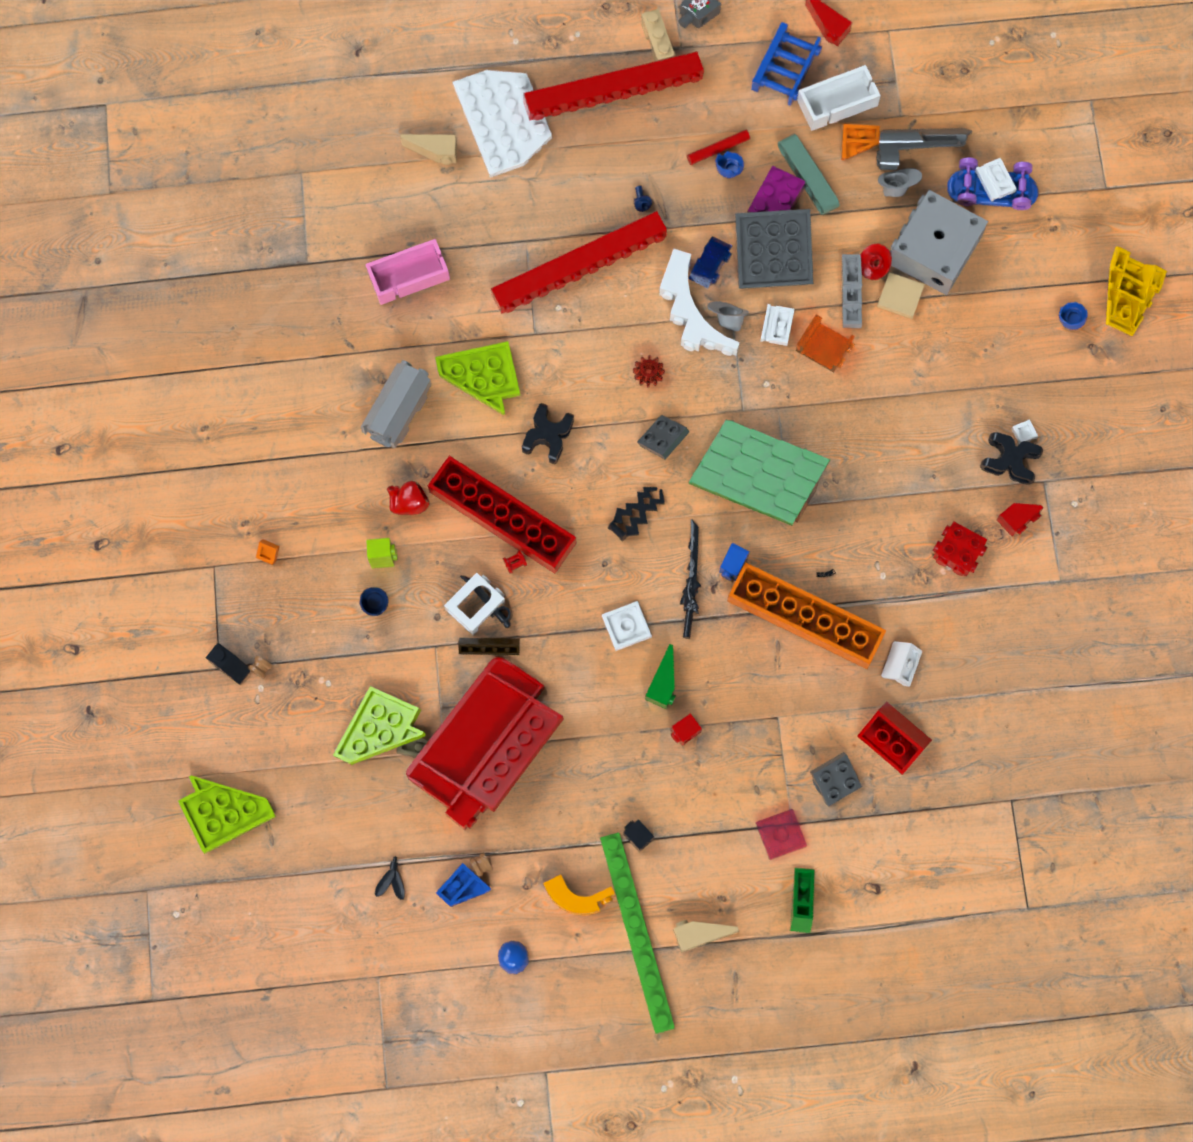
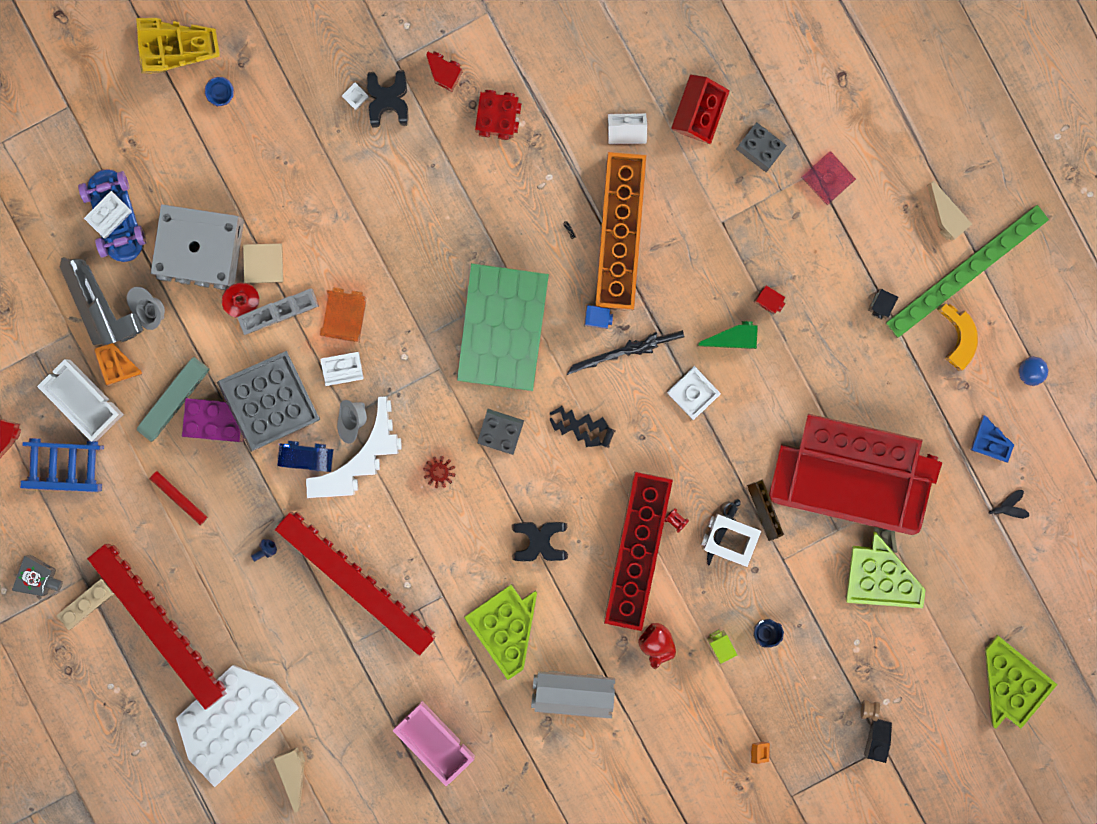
camera: 115 degrees left, 15 degrees up
(481, 864) = (966, 433): medium nougat wheel -> none
(729, 164) = (194, 479): blue hair -> none
(802, 900) = (880, 136): green slope -> none

